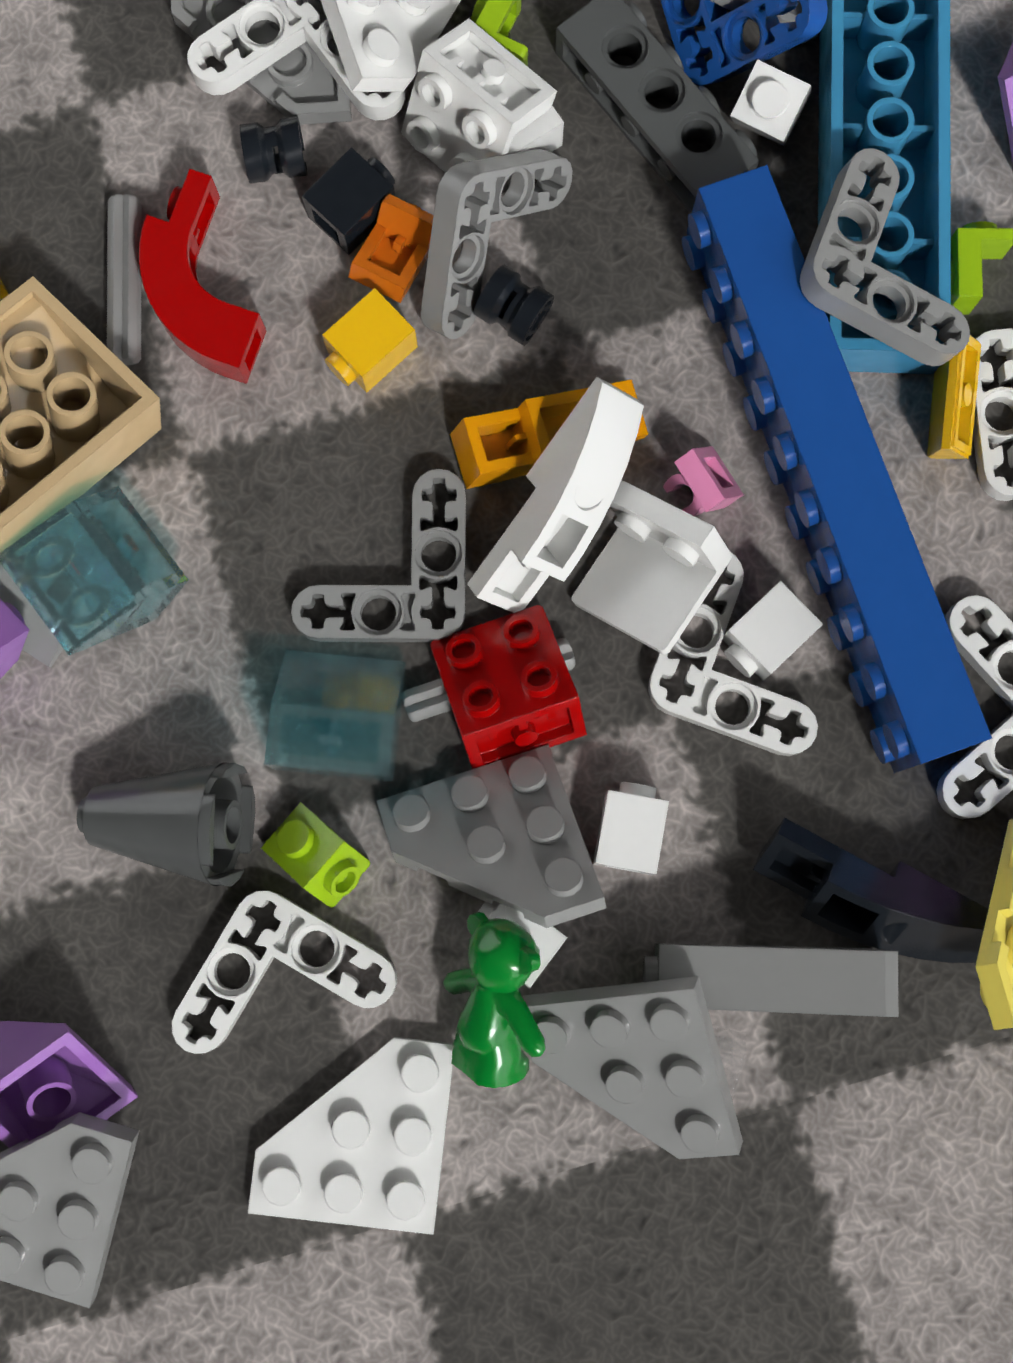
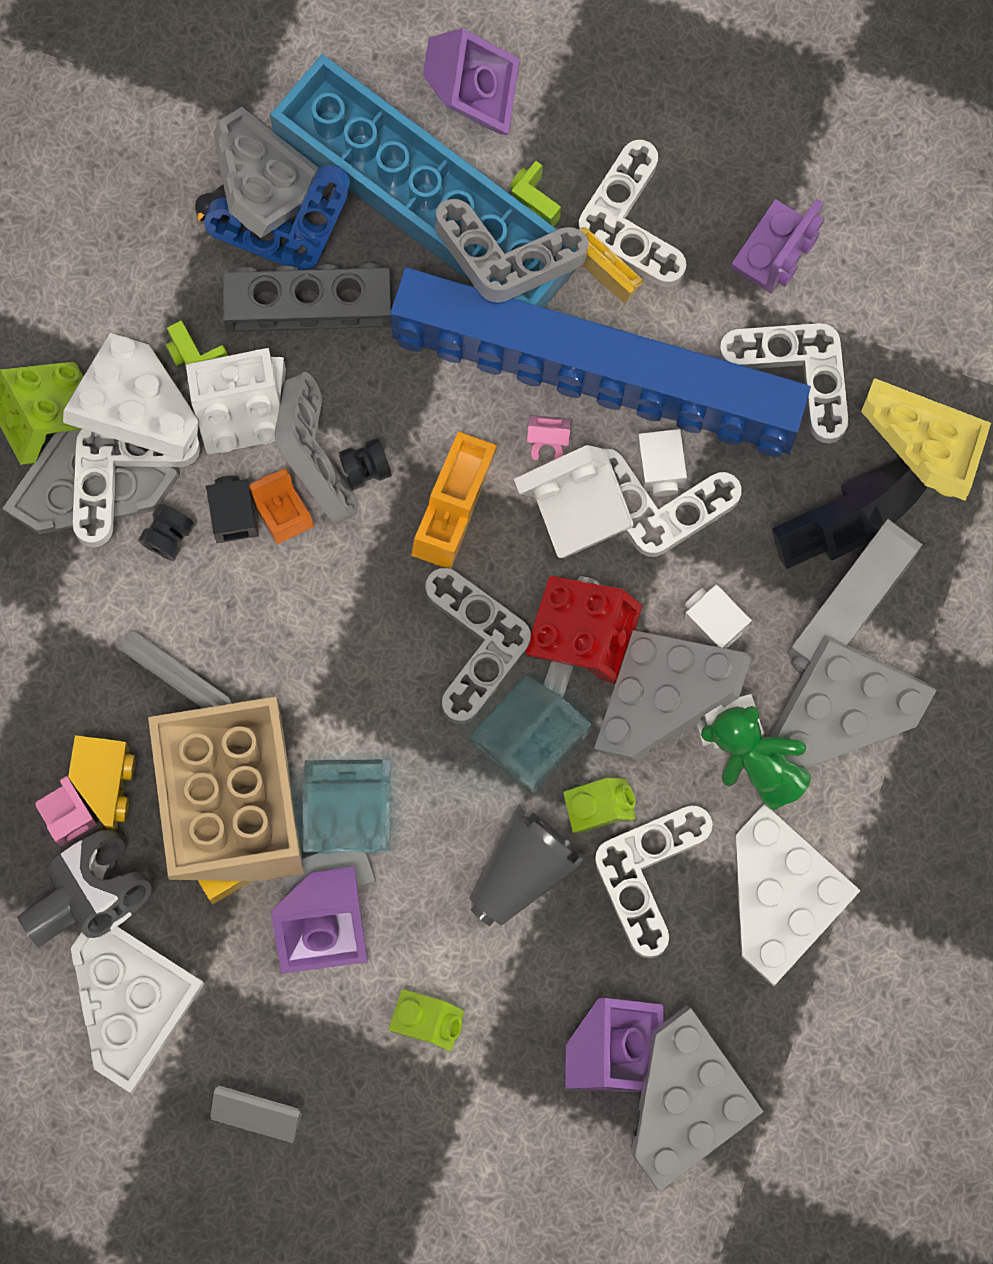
camera: 55 degrees left, 5 degrees down
(202, 326) = (223, 651): red arch -> none
(368, 342) = (324, 561): yellow brick -> none
(572, 495) = (504, 505): white slope -> none
(771, 103) = (359, 236): white brick -> none

